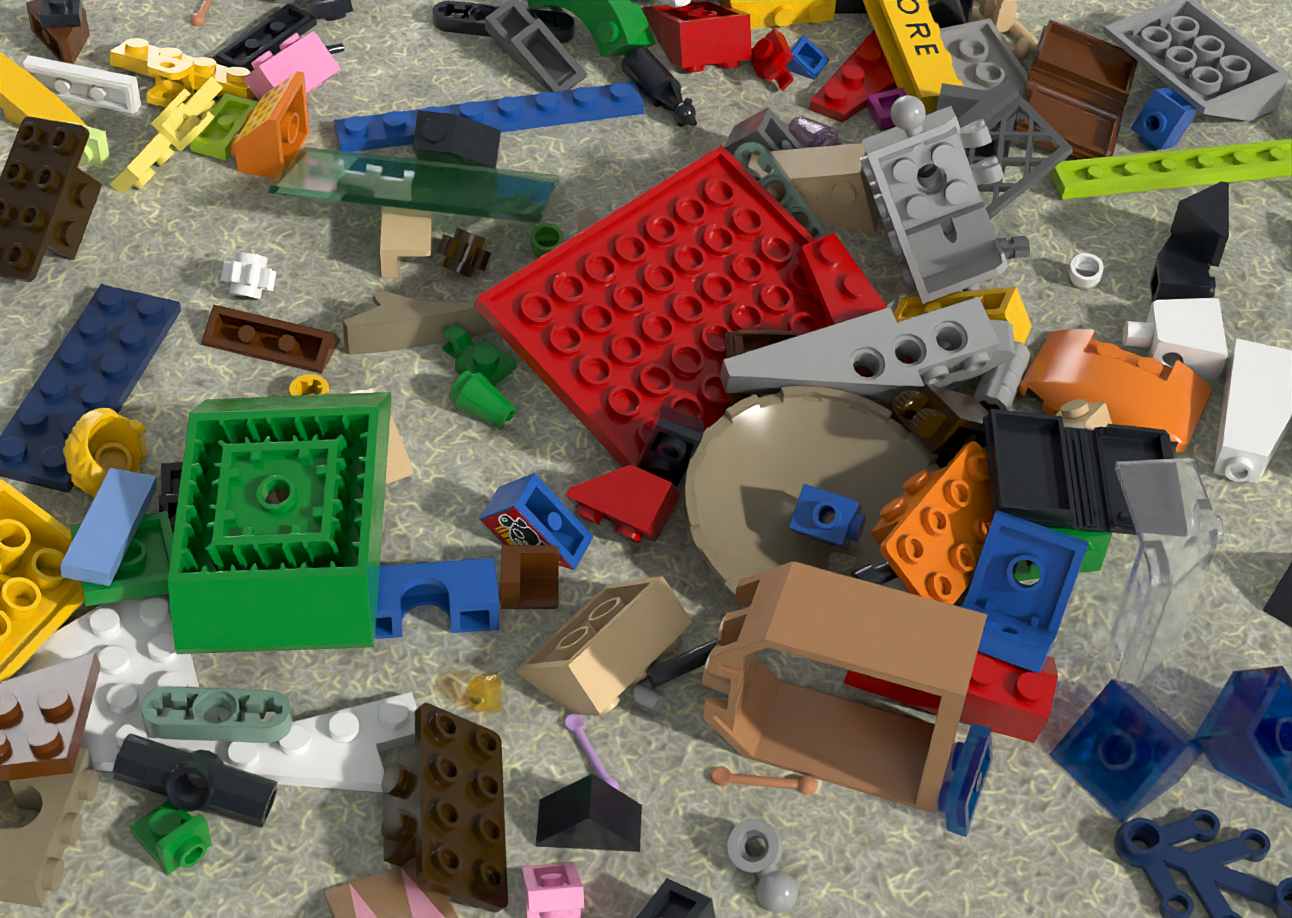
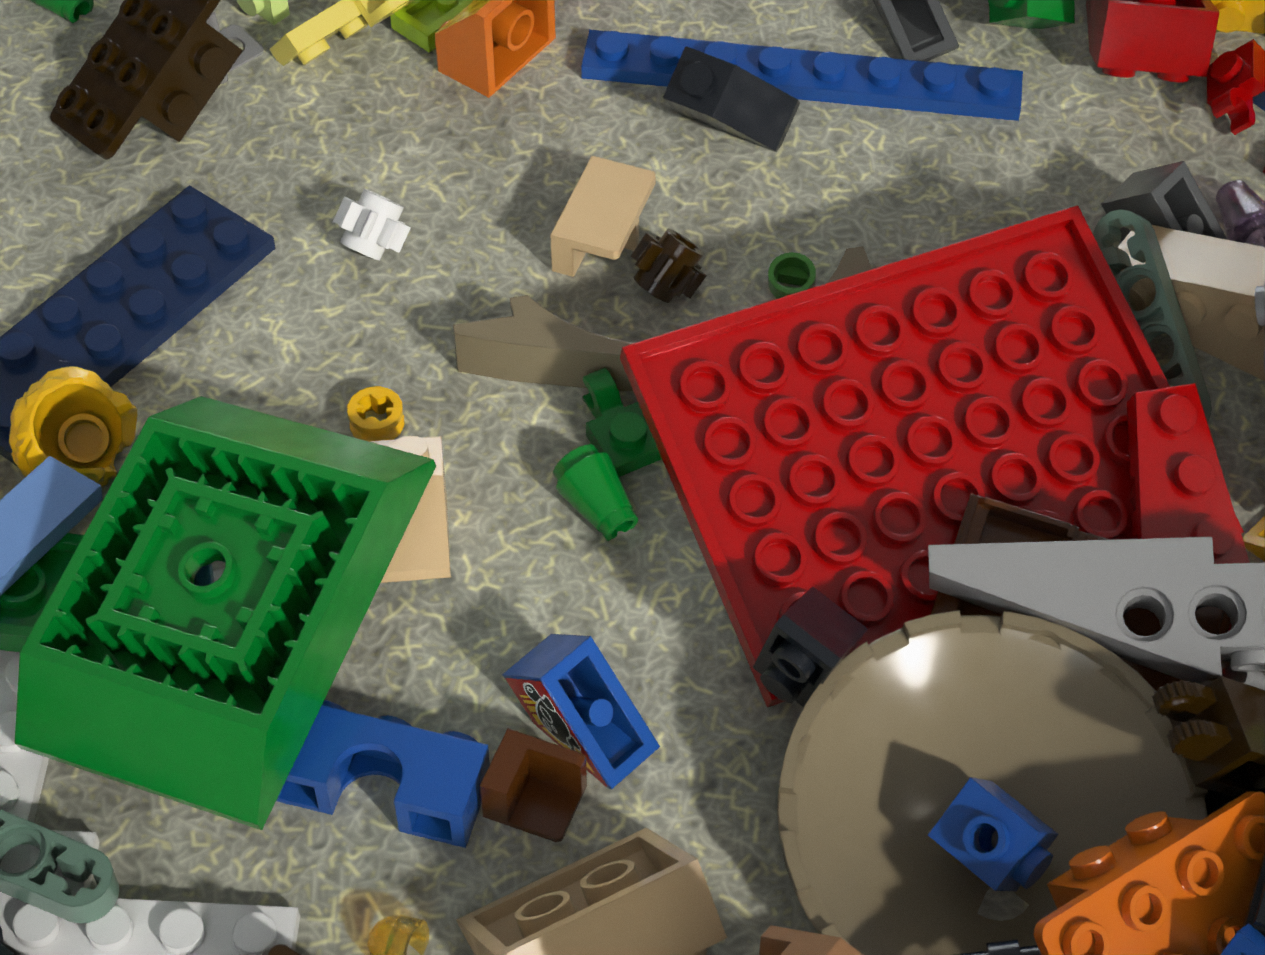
camera: 25 degrees right, 5 degrees up
(269, 339) = (365, 318): reddish brown slope -> none
(416, 184) = (650, 153): clear green piece -> none
(628, 498) = (723, 712): red slope -> none
(658, 84) = (1053, 83): black wheel -> none

